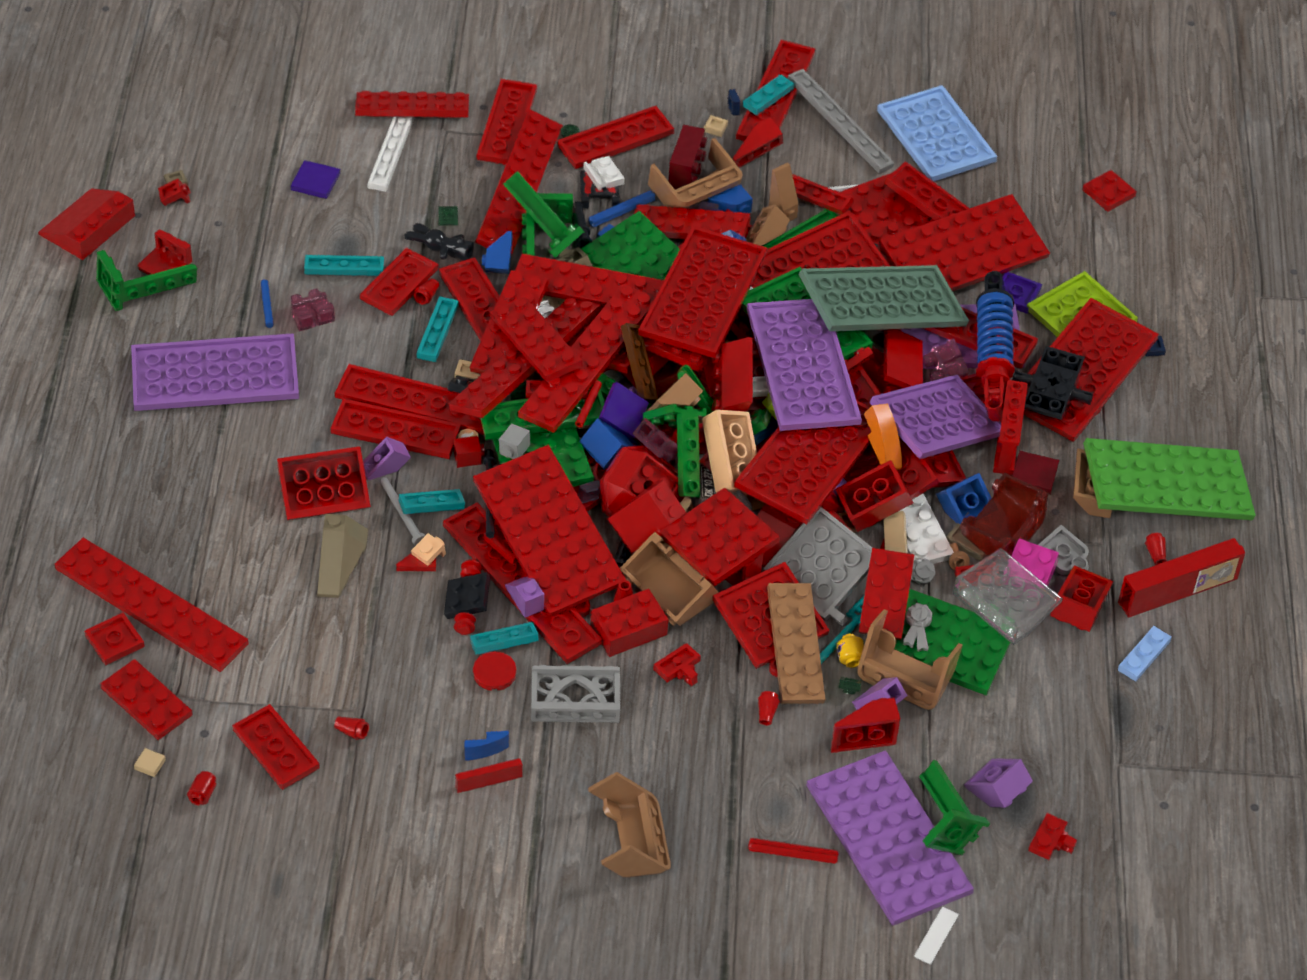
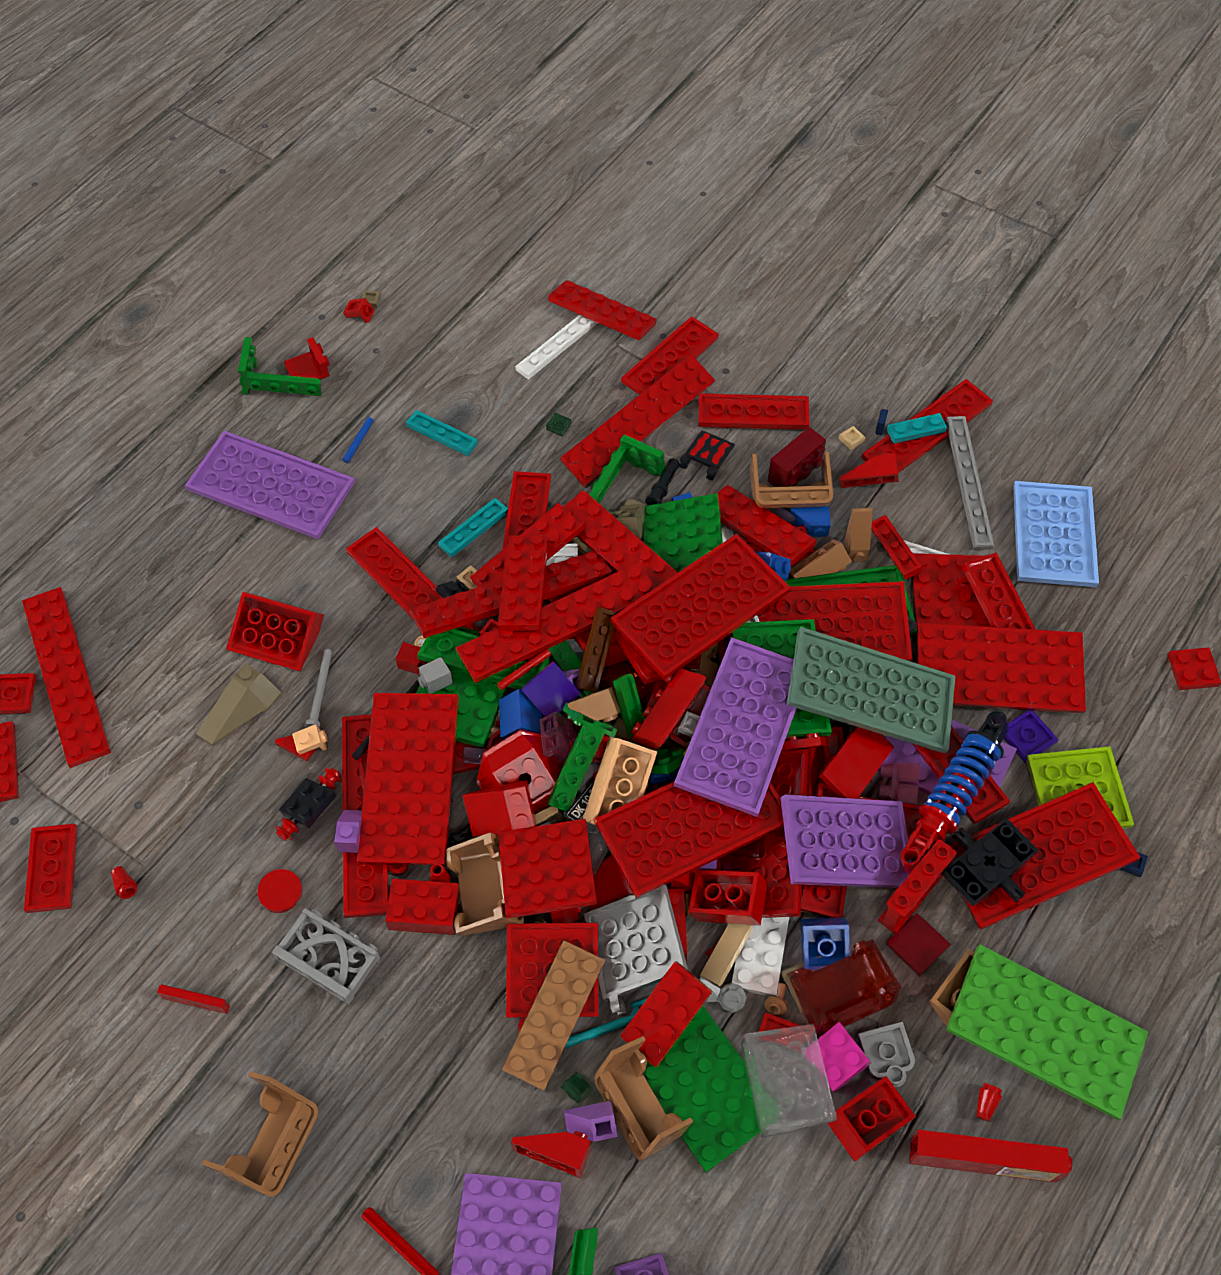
camera: 35 degrees right, 10 degrees up
(89, 221) = (278, 308): red slope -> none
(311, 310) = (385, 462): clear pink hips -> none
(315, 179) = (478, 344): dark purple tile -> none
(376, 423) = (370, 606): red plate -> none
(385, 458) = (340, 632): medium lavender slope -> none
(399, 281) = (474, 468): red plate -> none
(426, 291) = (490, 487): red cone -> none
(431, 501) = (344, 692): teal plate -> none
(437, 241) = (532, 445): black animal -> none
(494, 743) = (218, 967): blue slope -> none
(499, 255) = (571, 480): blue slope -> none
(504, 638) = (308, 862): teal plate -> none
(543, 215) = (626, 461): green bracket -> none
(568, 130) = (717, 388): clear green plate -> none
(604, 173) = (718, 441): white plate -> none
(621, 208) = (711, 482): blue axle -> none
(679, 664) = (437, 975): red hinge -> none
(767, 705) = (485, 1068): red cone -> none
(850, 650) = (600, 1048): yellow head -> none
(884, 434) = (771, 842): orange slope -> none
(918, 617) = (687, 1054): light grey piece -> none
(1144, 653) = (897, 1218): light blue plate -> none

